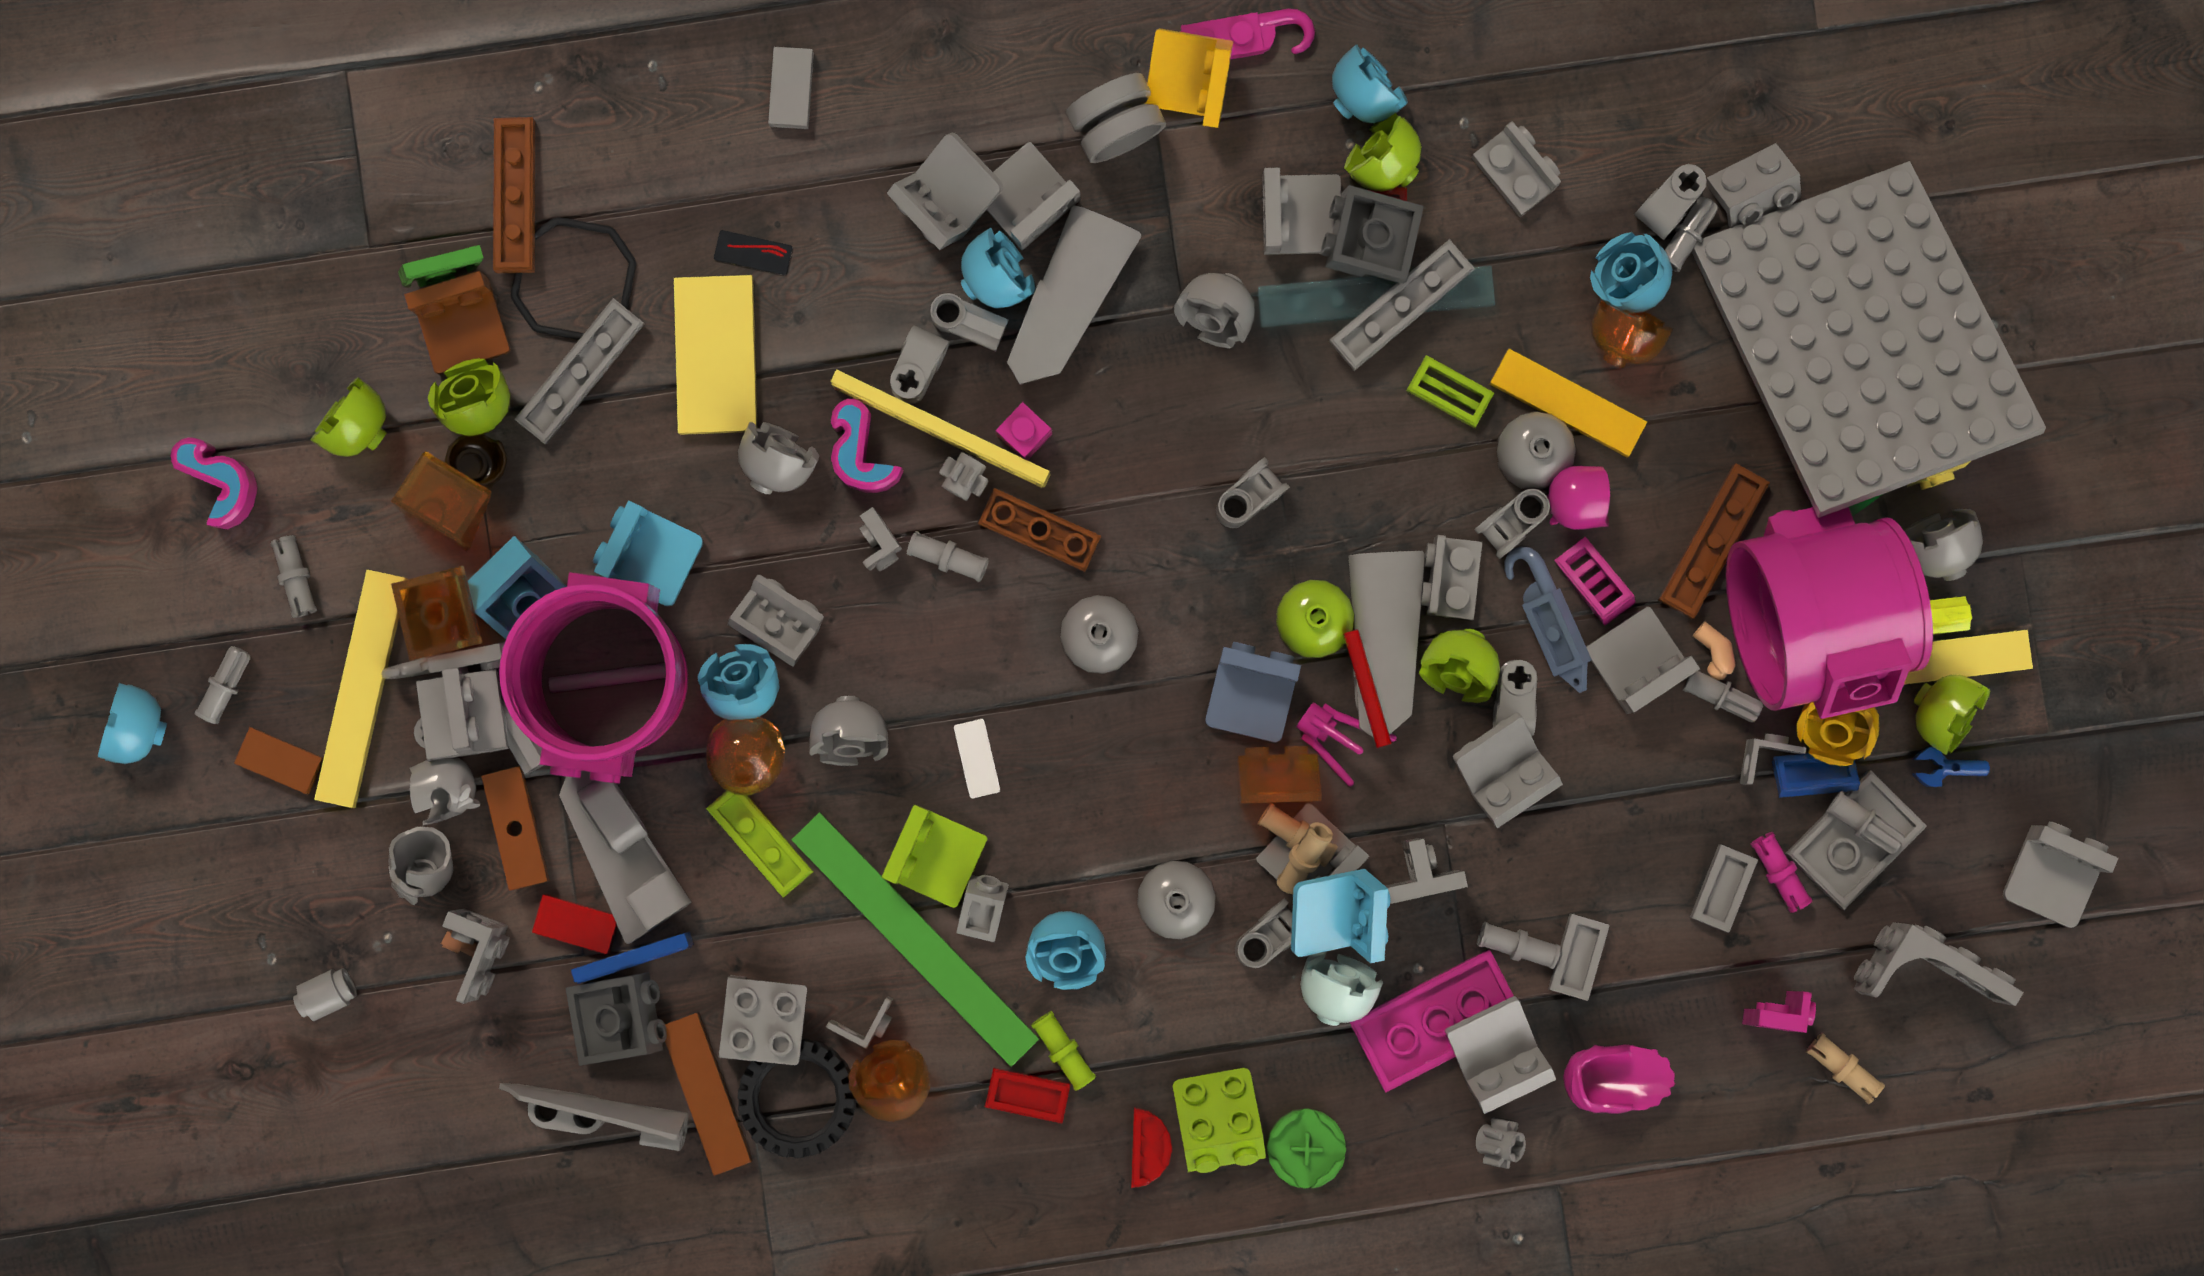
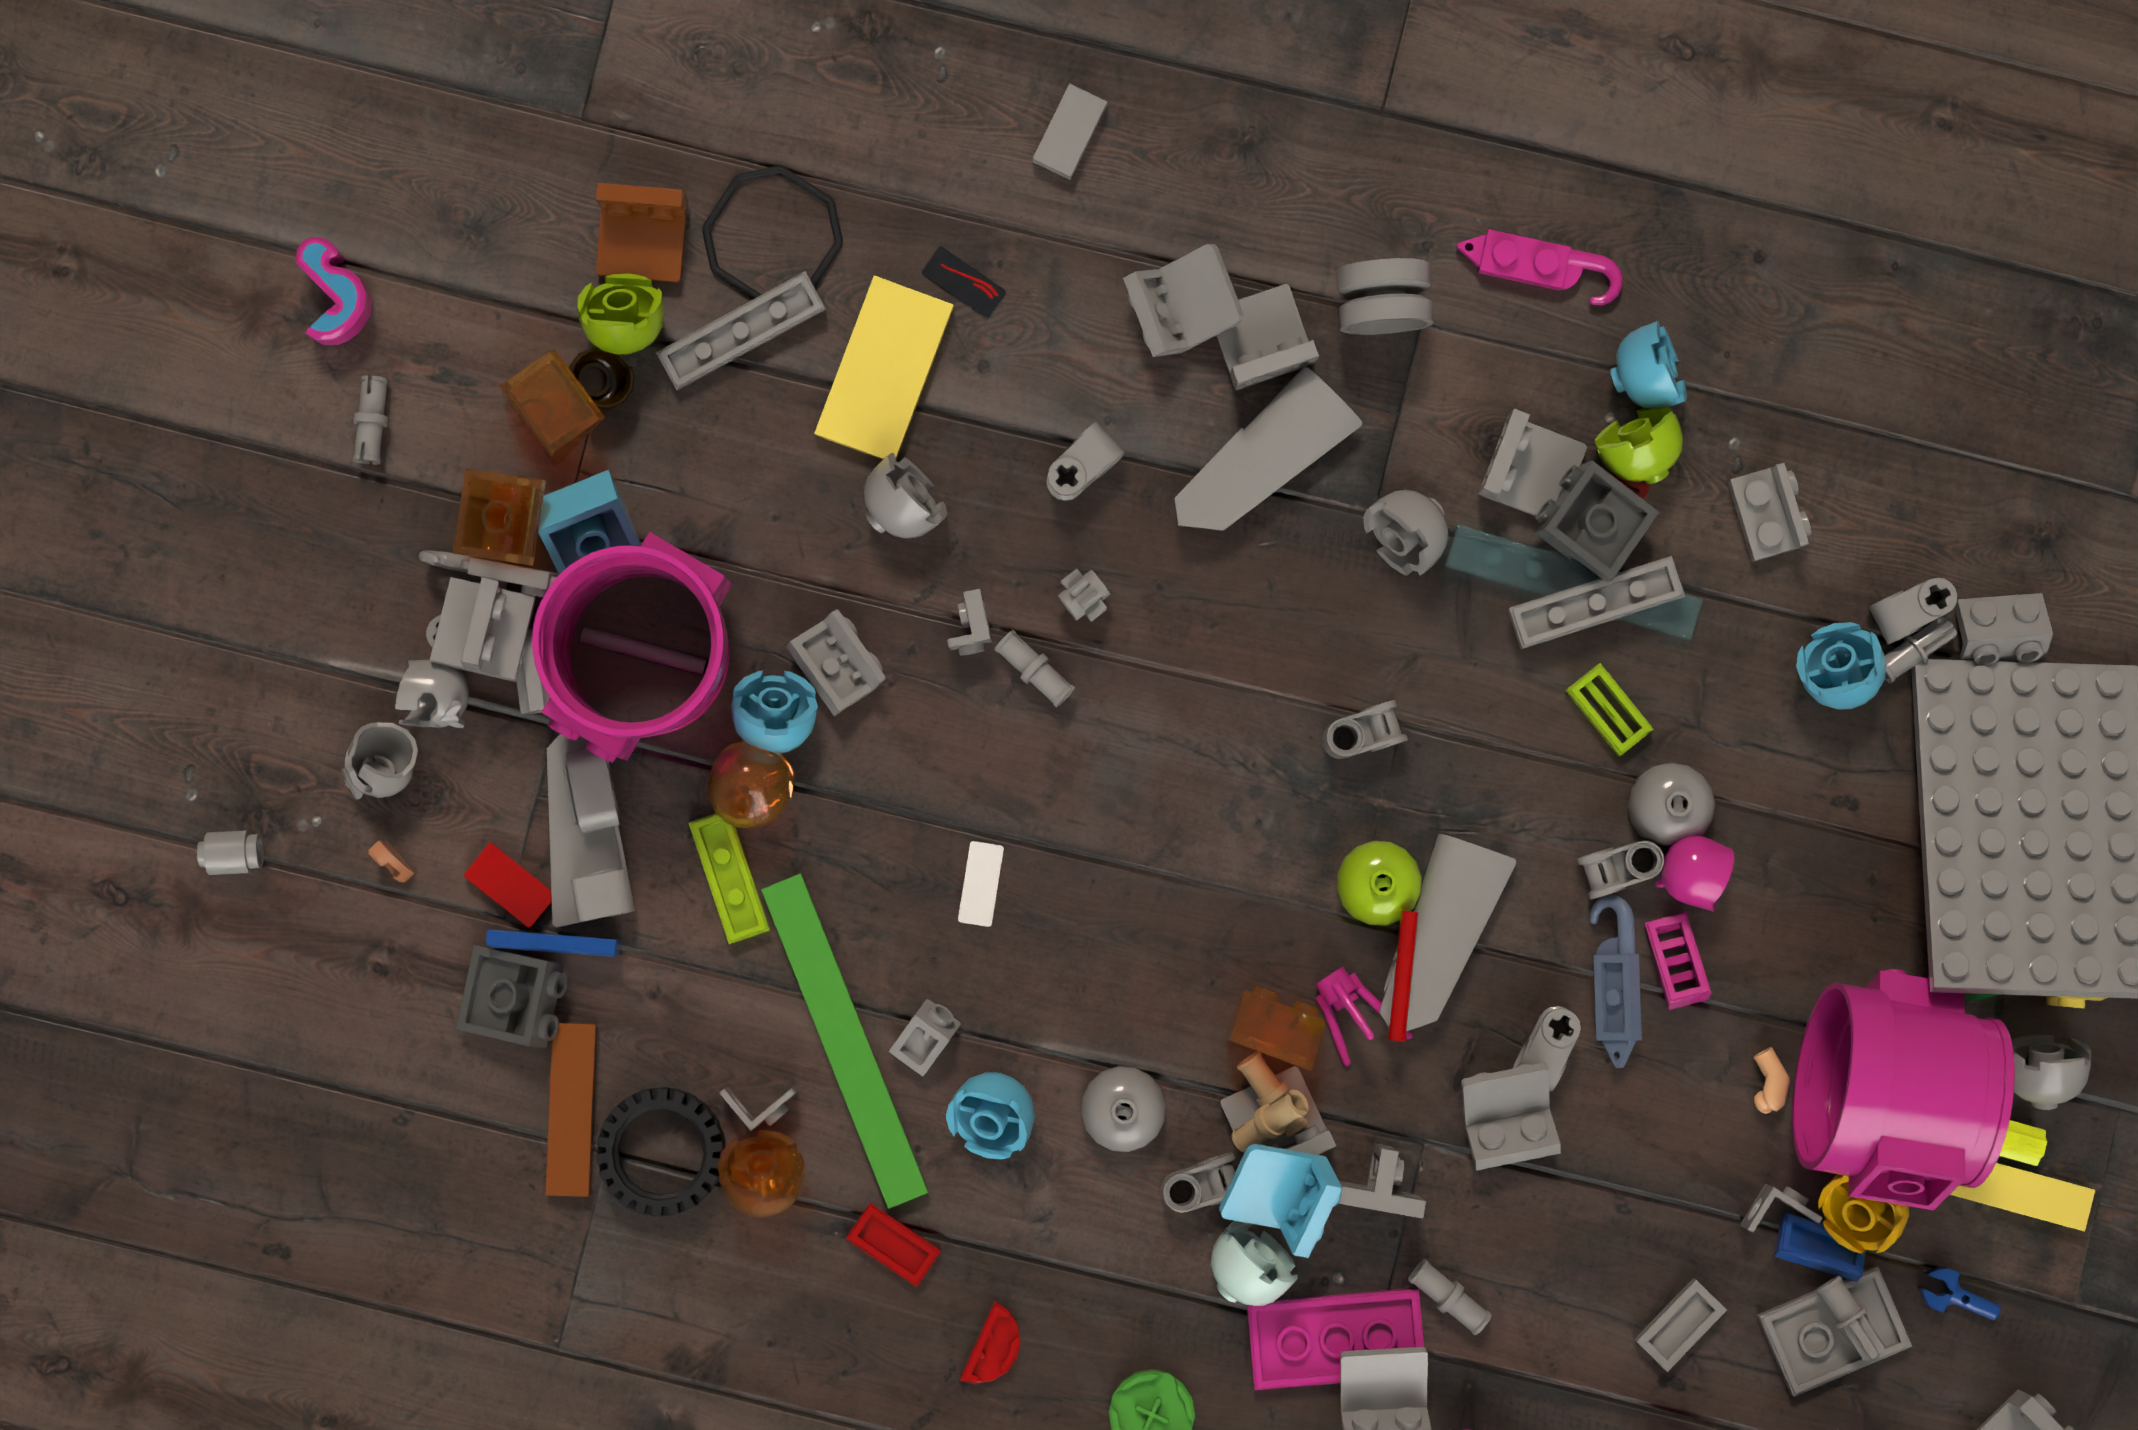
camera: 15 degrees right, 0 degrees up
(131, 726) = (148, 504): medium azure cylinder -> none
(223, 685) = (255, 500): light grey axle -> none
(279, 760) = (280, 598): dark orange tile -> none
(352, 422) = (493, 289): lime cylinder -> none
(359, 692) = (389, 562): light yellow tile -> none
(440, 267) = (644, 170): bright green tile -> none
(492, 943) = (402, 846): light grey bracket -> none
(508, 803) = (491, 736): dark orange tile -> none
(514, 195) = (747, 126): dark orange tile -> none
(648, 551) = (736, 541): medium azure bracket -> none
(658, 1126) = (510, 1122): light grey panel -> none
(762, 1021) = (658, 1060): light grey bracket -> none
(848, 731) = (862, 803): light grey cylinder -> none
(851, 449) = (981, 522): dark pink animal -> none
(935, 856) = (898, 965): lime bracket -> none
(940, 429) = (1079, 537): light yellow tile -> none
(972, 323) = (1156, 444): light grey piece -> none
(993, 271) = (1198, 401): medium azure cylinder -> none
(1024, 432) = (1162, 575): dark pink brick -> none
(1062, 540) = (1156, 700): dark orange tile -> none
(1063, 1050) = (947, 1214): lime pin -> none
(1092, 650) = (1142, 824): light grey cylinder -> none
(1189, 74) = (1477, 282): yellow bracket -> none
(1219, 1120) = (1075, 1348): lime bracket -> none
(1252, 692) = (1285, 932): sand blue bracket -> none
(1452, 578) = (1534, 898): light grey bracket -> none
(1461, 663) = (1509, 990): lime cylinder -> none
(1568, 402) = (1724, 769): yellow tile -> none
(1579, 957) = (1505, 1334): light grey tile -> none
(1628, 335) = (1812, 727): clear orange cylinder -> none
(1639, 660) = (1689, 1060): light grey bracket -> none
(1713, 541) = (1814, 969): dark orange tile -> none
(1723, 696) = (1759, 1130): light grey axle -> none
(1781, 872) = (1745, 1332): dark pink pin -> none
(1948, 710) = (1981, 1239): lime cylinder -> none

